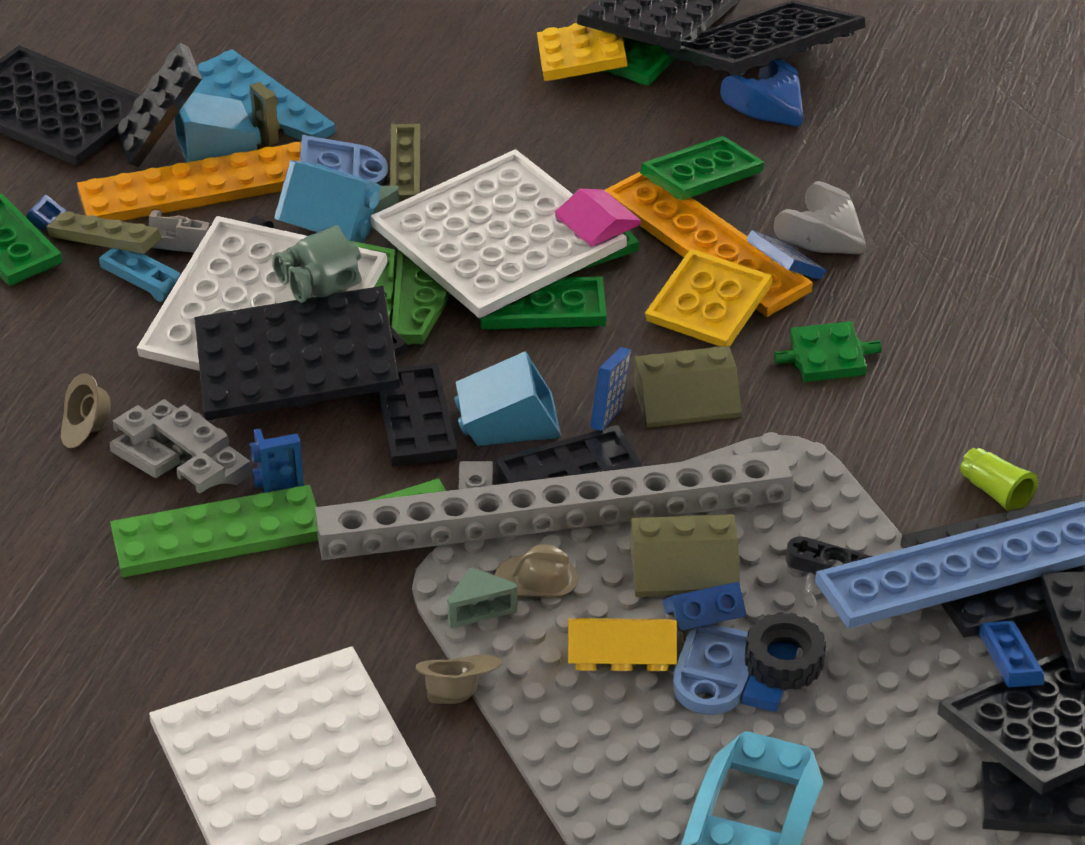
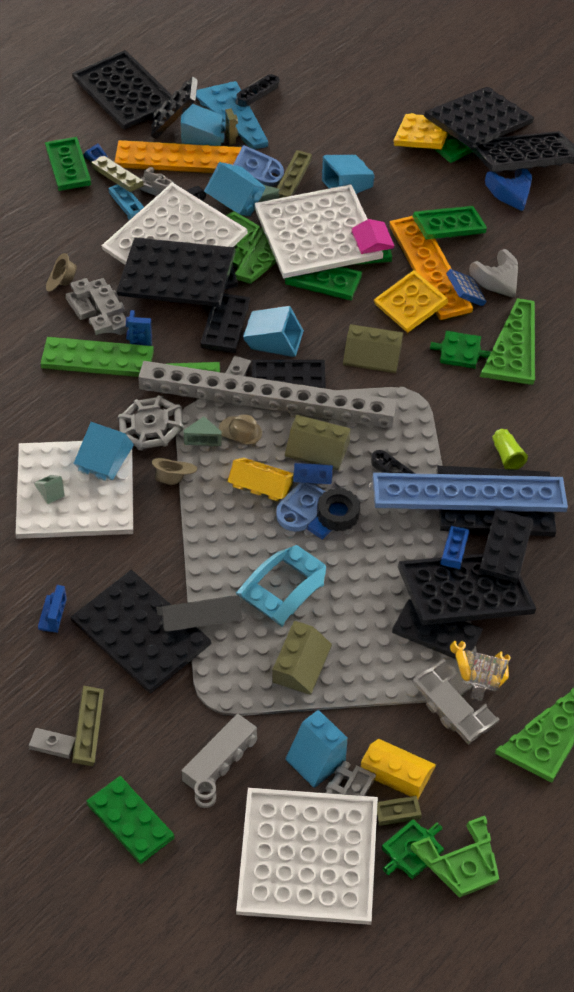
camera: 20 degrees right, 10 degrees up
(254, 766) = (51, 488): none -> sand green slope
(276, 53) = (245, 96): none -> black beam
(319, 265) = (207, 227): sand green piece -> none
(321, 676) = (102, 451): none -> dark azure slope
(361, 588) = (150, 410): none -> light grey plate
(490, 133) = (346, 170): none -> dark azure slope
(610, 388) = (327, 339): blue tile -> none
(913, 327) = (514, 350): none -> bright green wing

